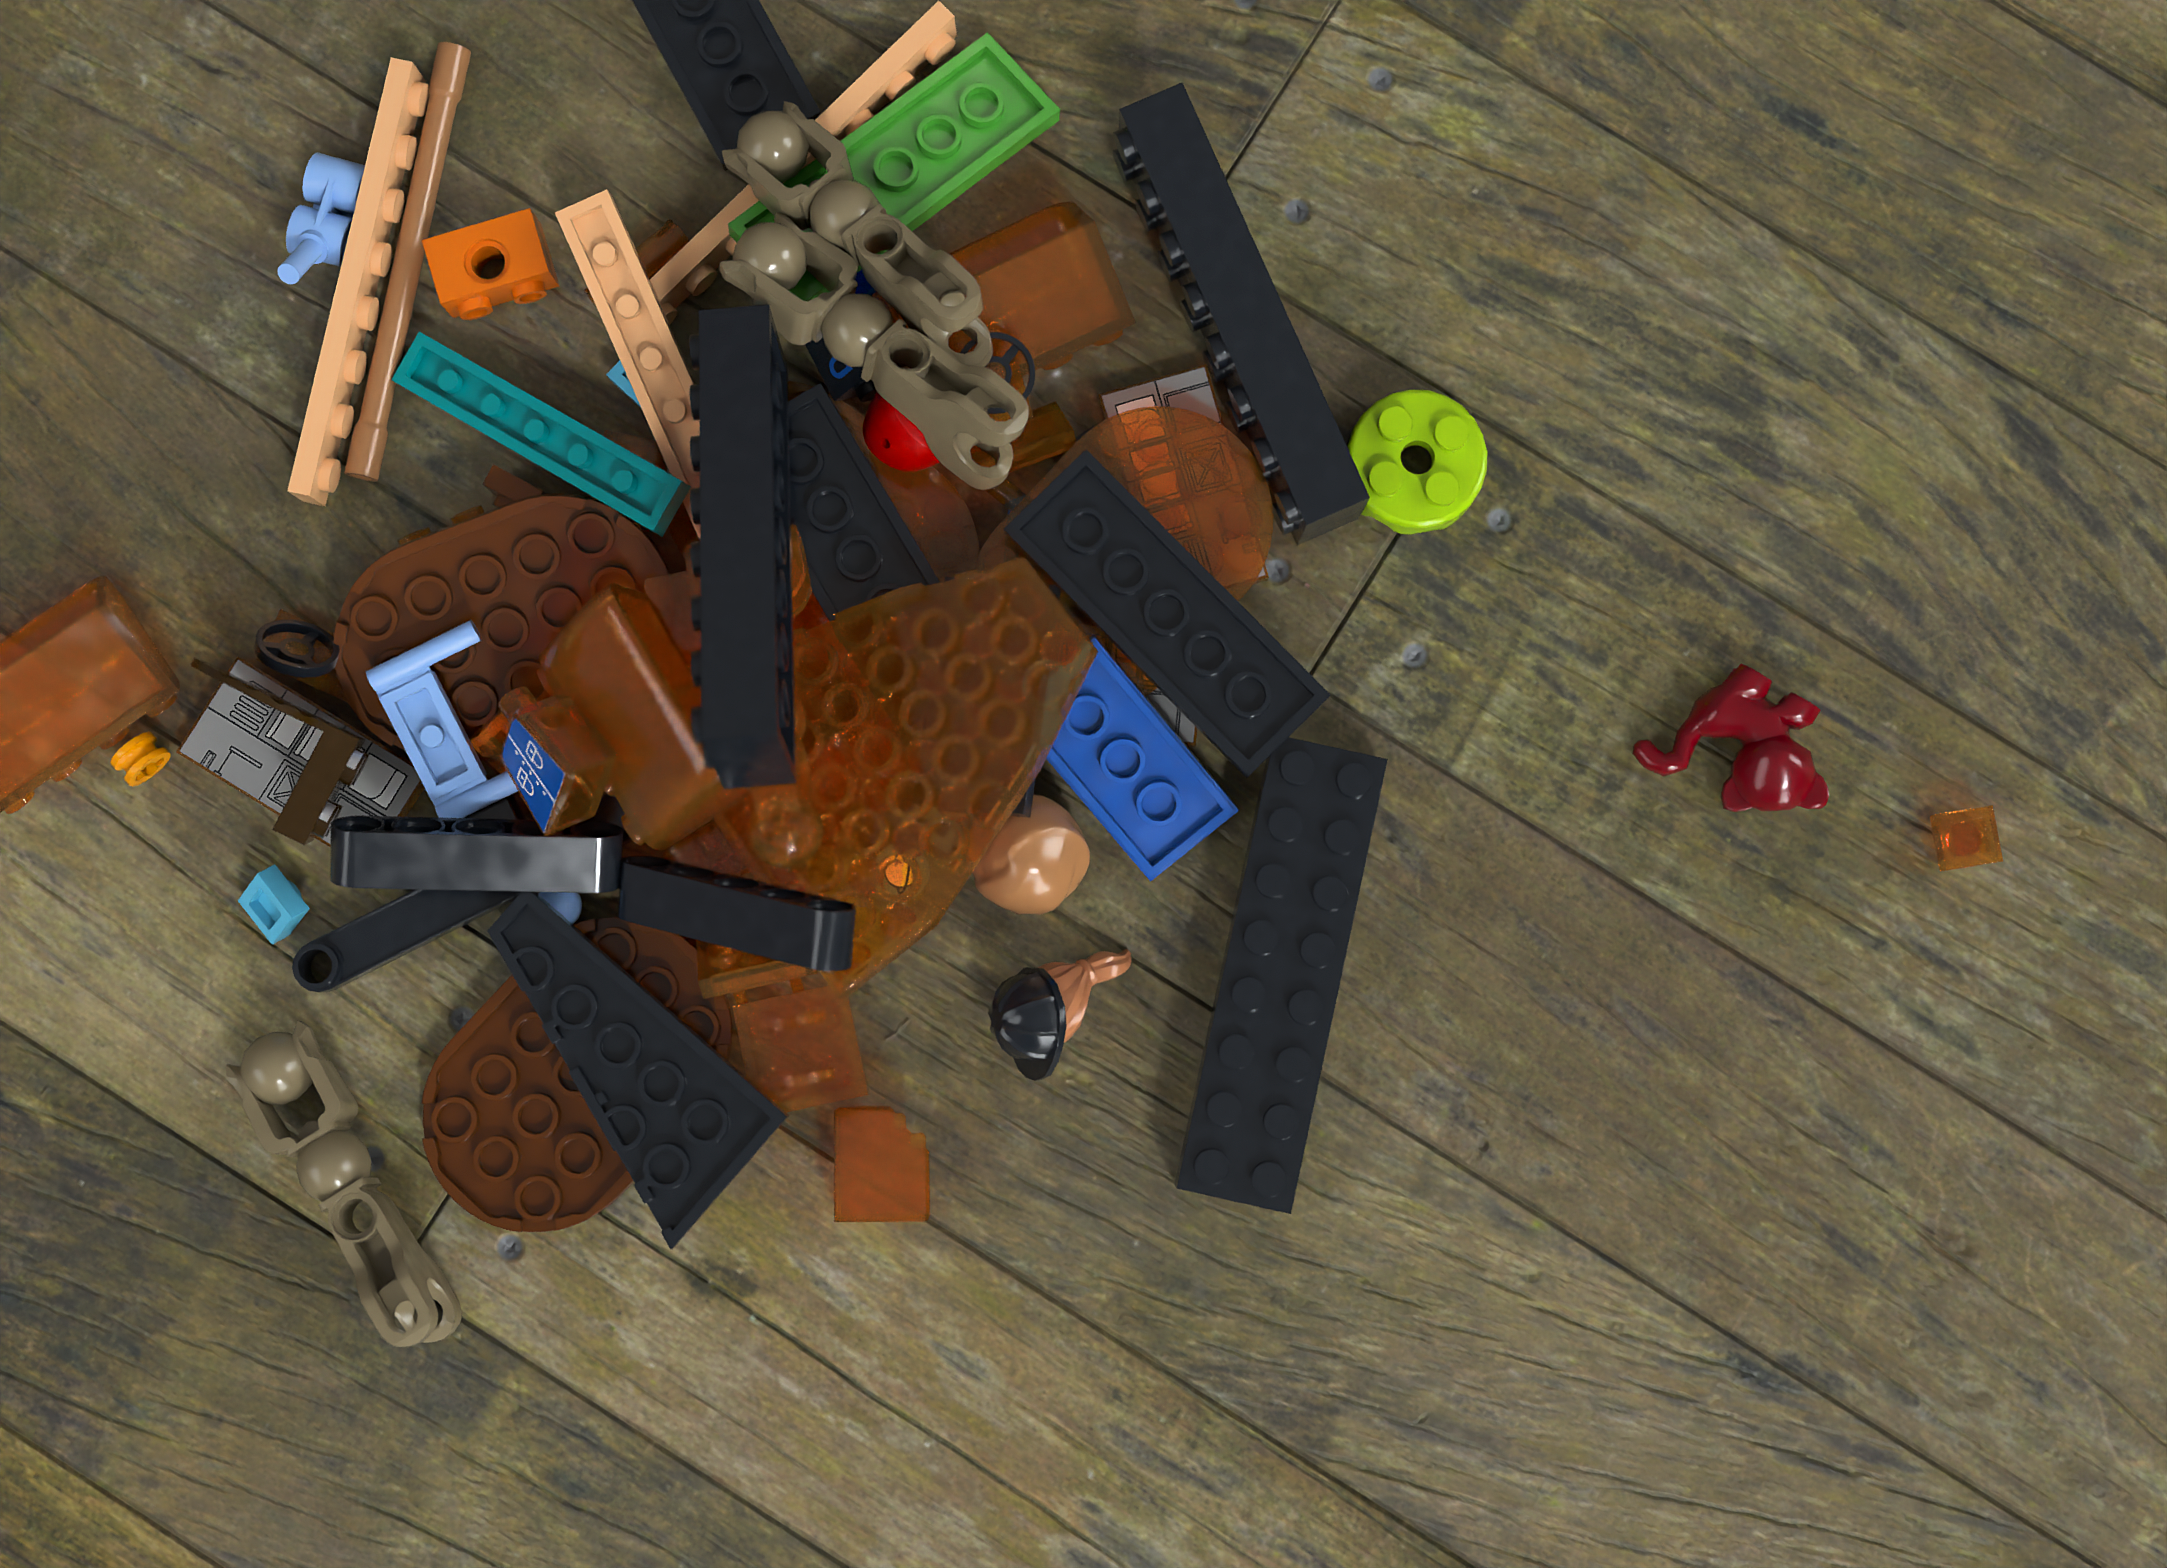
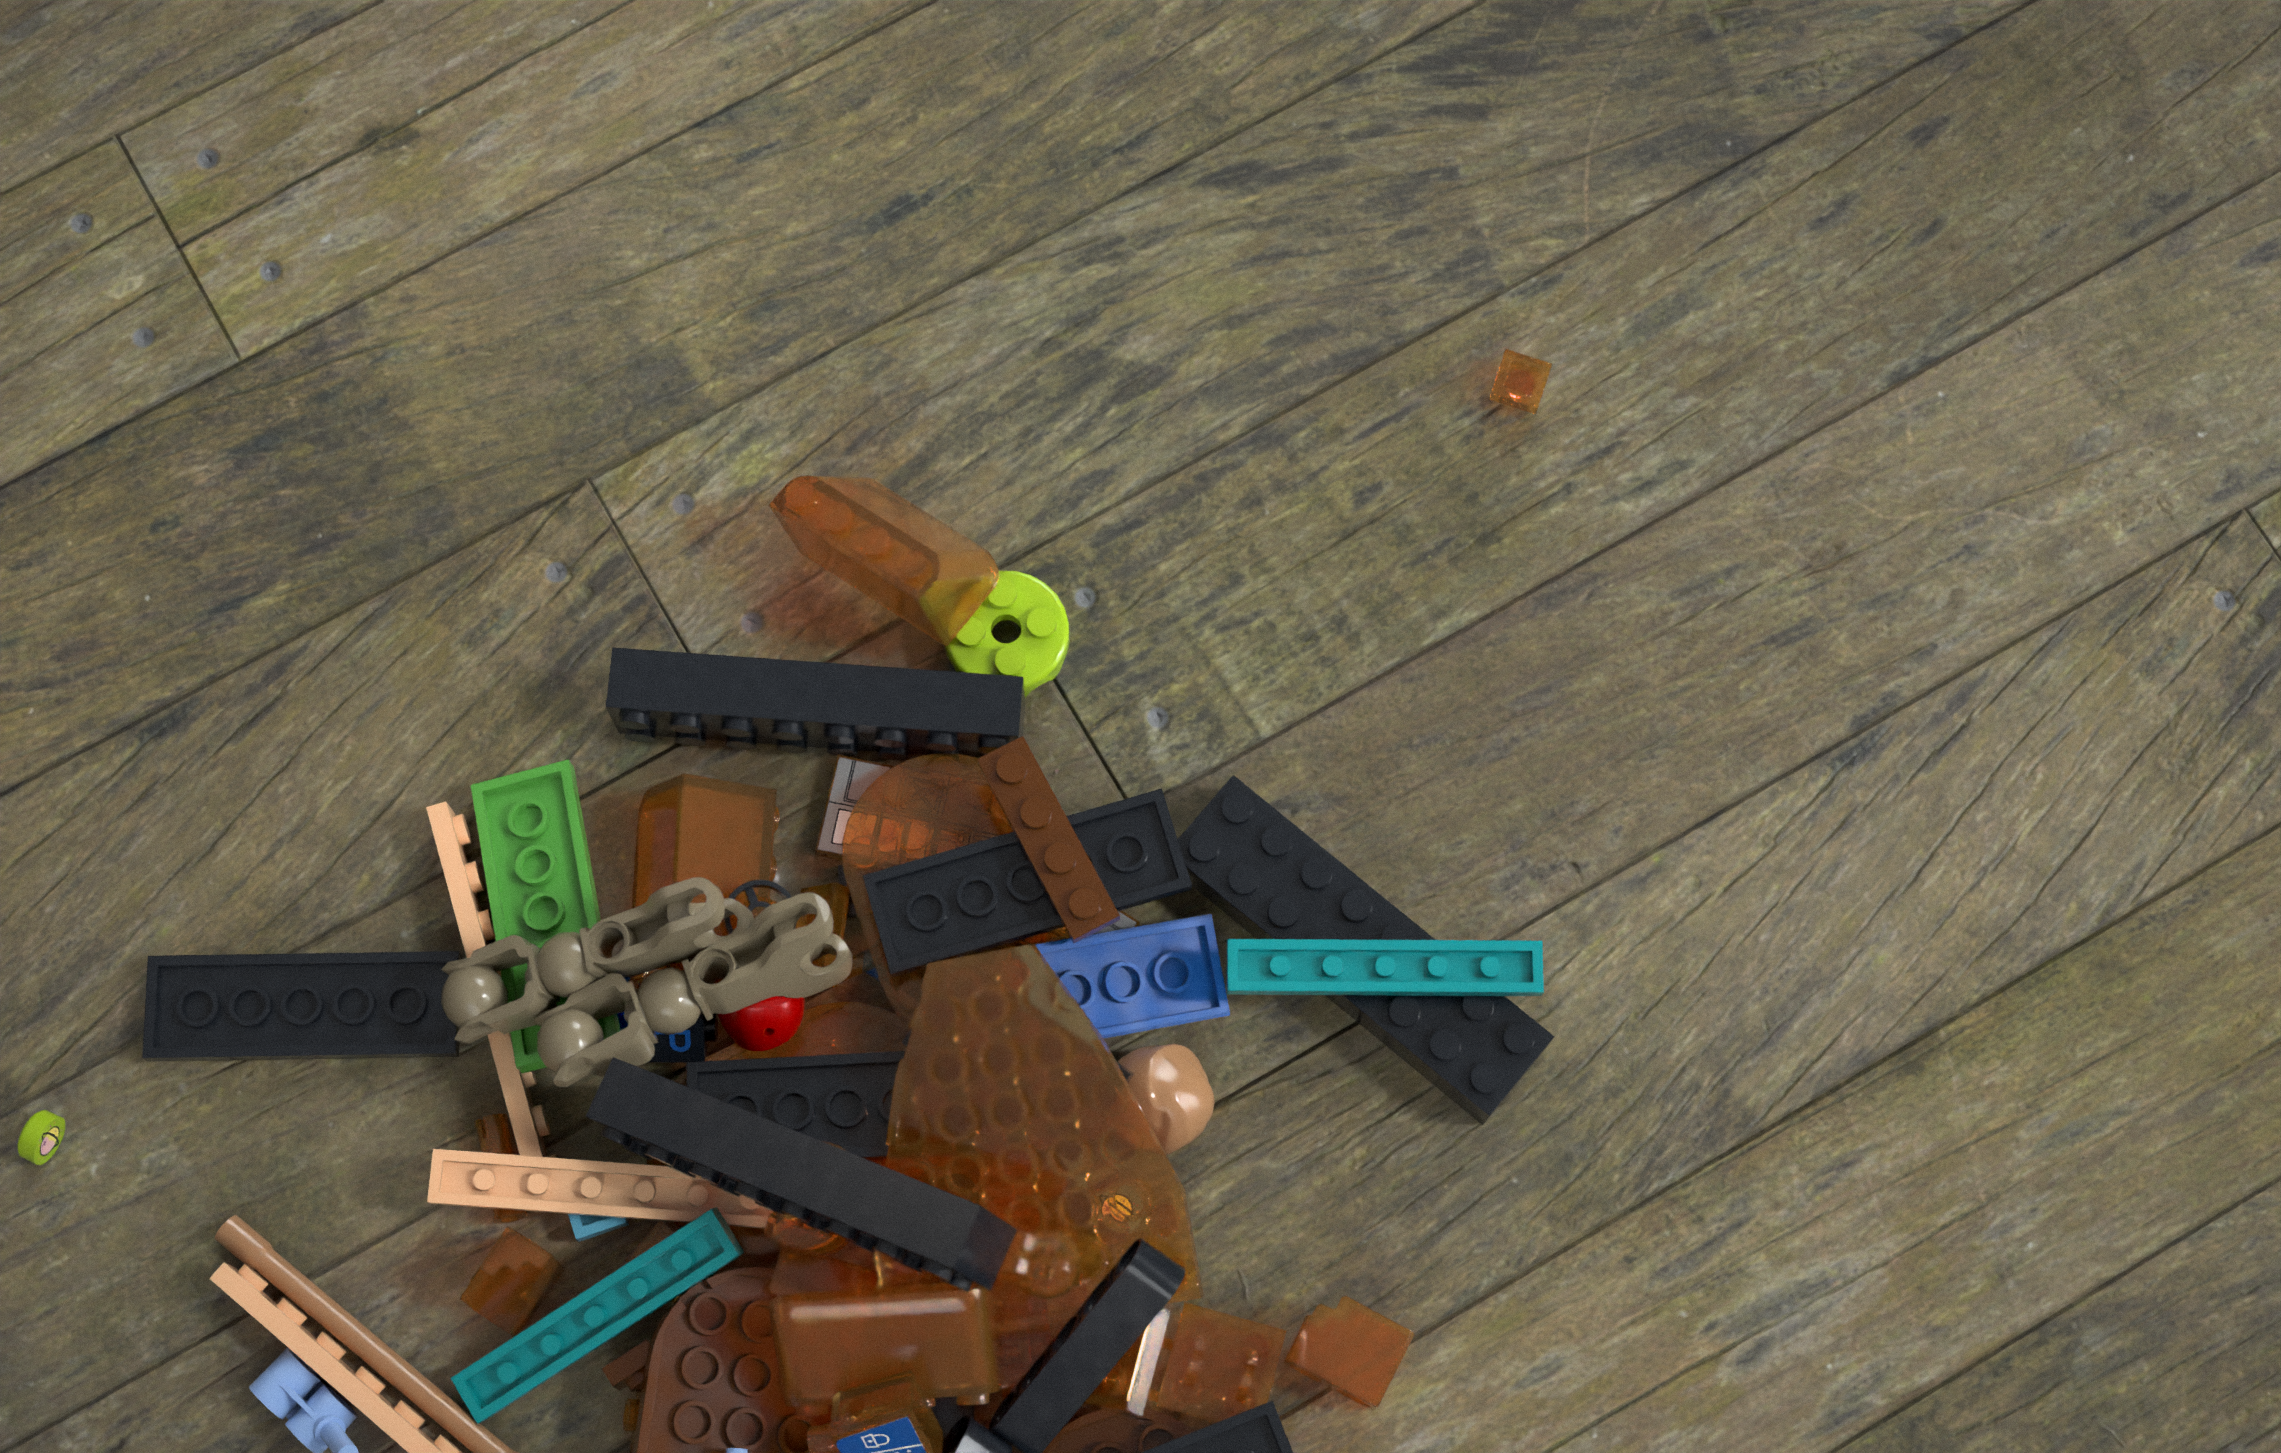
camera: 65 degrees left, 10 degrees down
(461, 254) = (419, 1258): orange brick -> none
(537, 337) = (512, 1282): none -> clear orange piece
(1046, 1006) = (1291, 1149): black piece -> none
(1217, 609) = (1048, 839): none -> reddish brown plate
(1266, 1011) = (1385, 967): none -> teal plate
(1436, 298) = (888, 550): none -> clear orange windscreen
(1770, 767) = (1390, 495): dark red animal -> none

